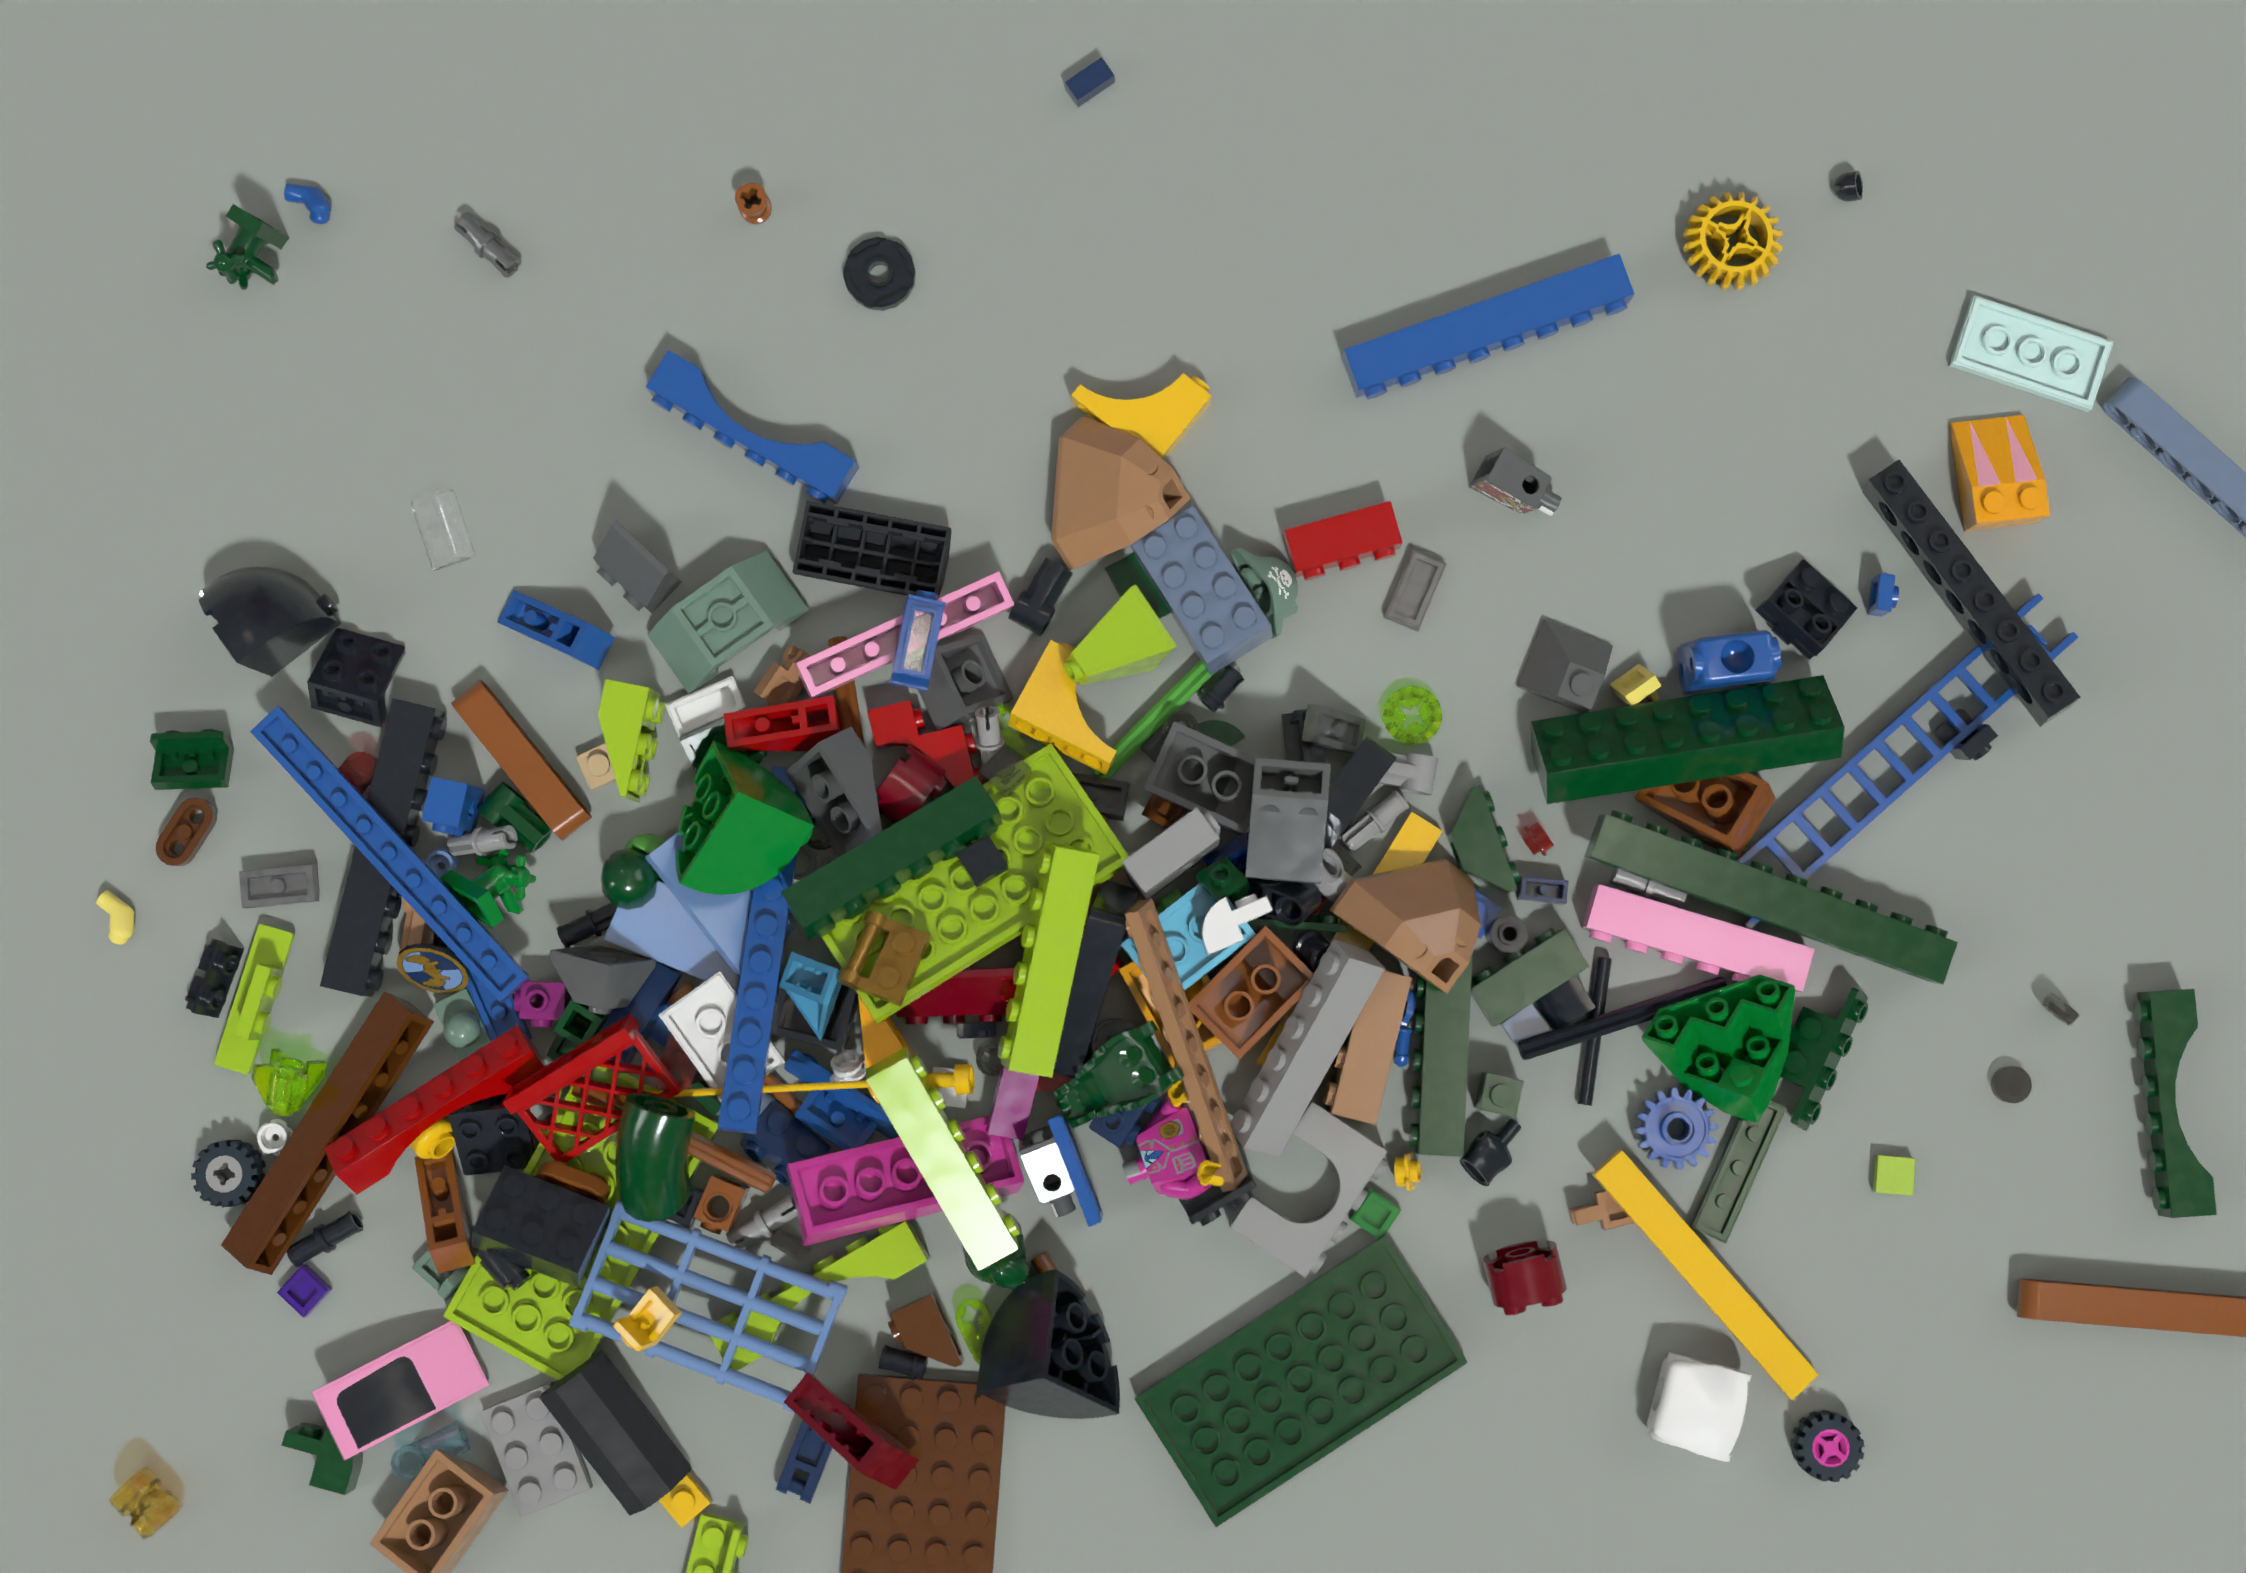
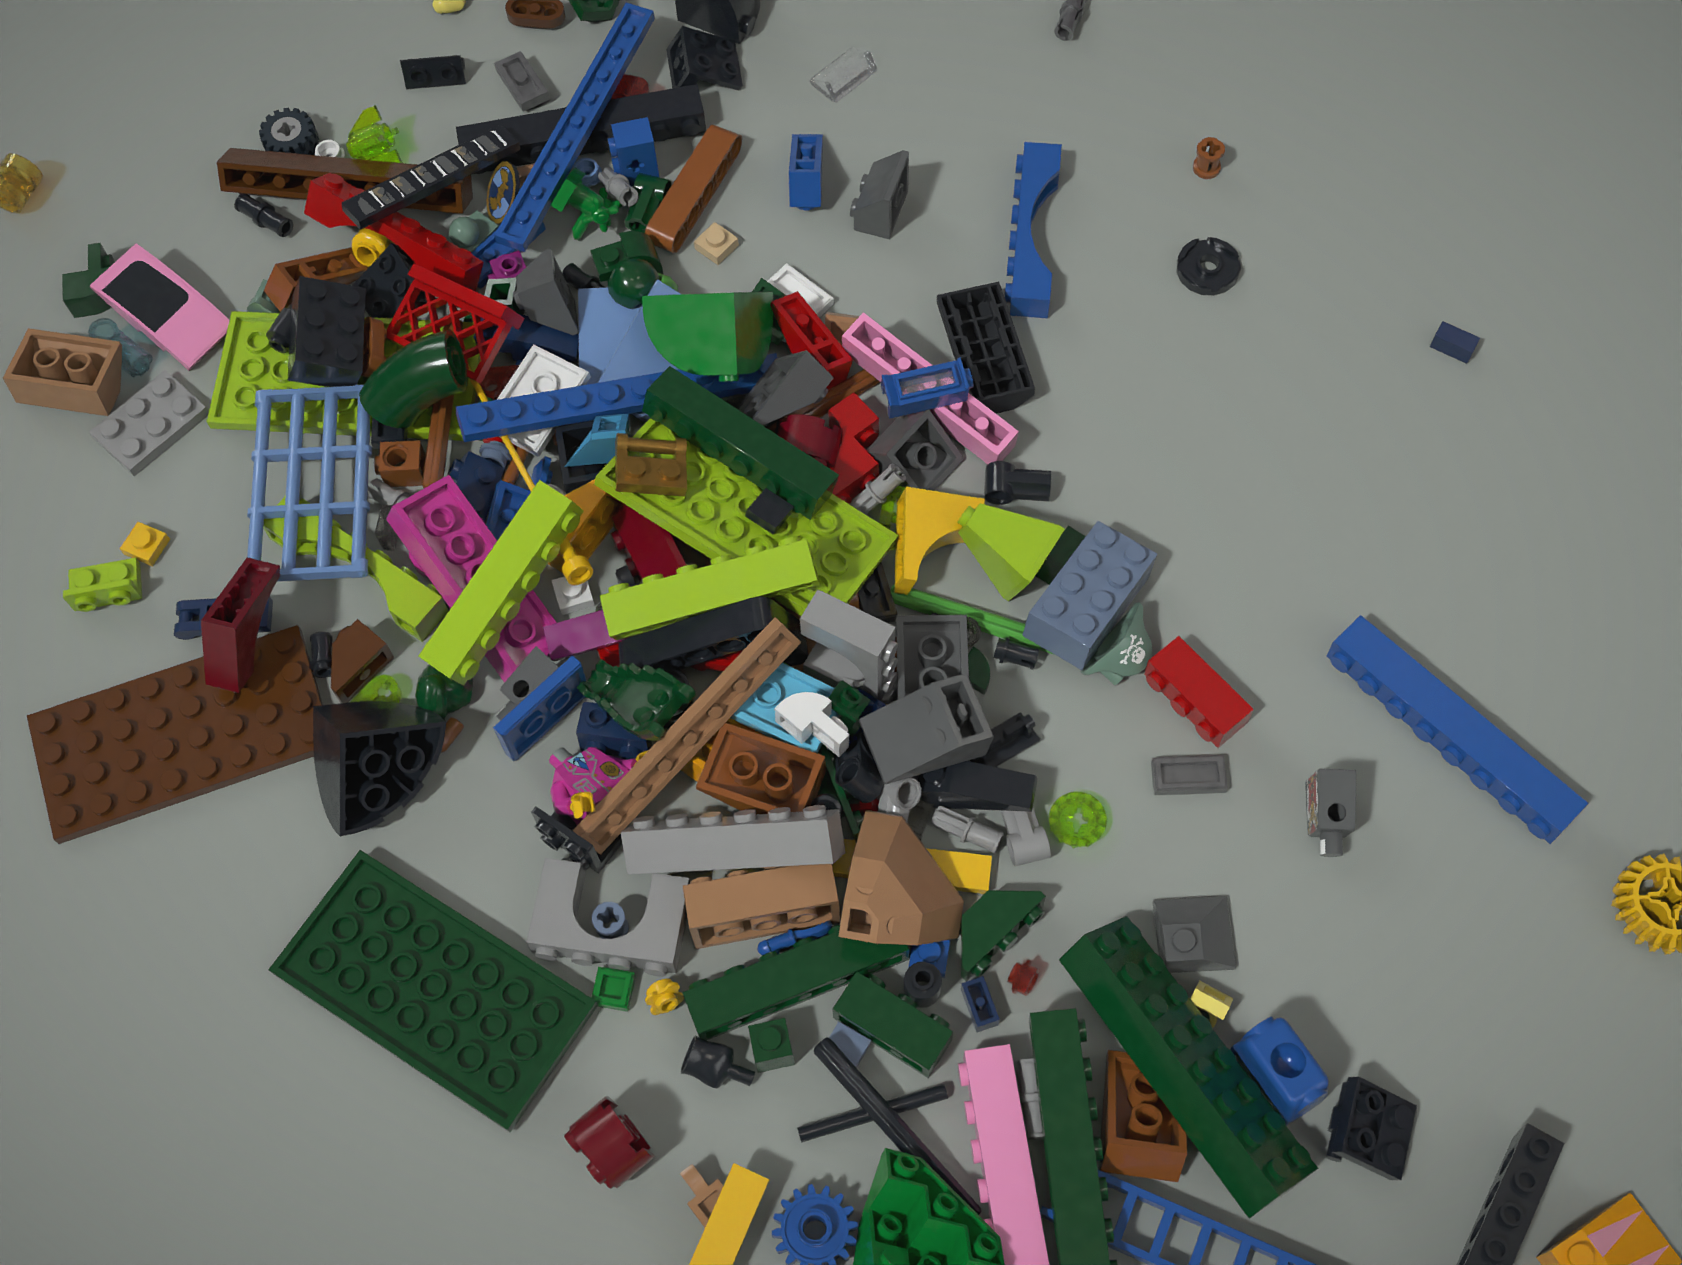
camera: 60 degrees right, 20 degrees down
(254, 999) = (431, 99): lime bracket -> none
(304, 1290) = (218, 221): dark purple tile -> none
(389, 1040) = (430, 176): none -> black tile
(583, 868) = (631, 245): none -> dark green brick
(616, 1433) = (182, 466): black piece -> none
(628, 725) = (746, 241): lime slope -> none
(648, 1320) = (277, 436): yellow bracket -> none
(725, 619) = (880, 268): sand green slope -> none
(1005, 771) = (856, 509): clear smoke plate -> none
(1108, 492) = (1131, 488): medium nougat brick -> none
(1155, 419) = (1210, 504): yellow arch -> none
(1316, 1203) = (602, 915): none -> sand blue bush
(1333, 729) = (1029, 748): flat silver plate -> none
(1565, 1003) = (887, 1070): black brick -> none
(1882, 595) = (1427, 1198): blue plate -> none

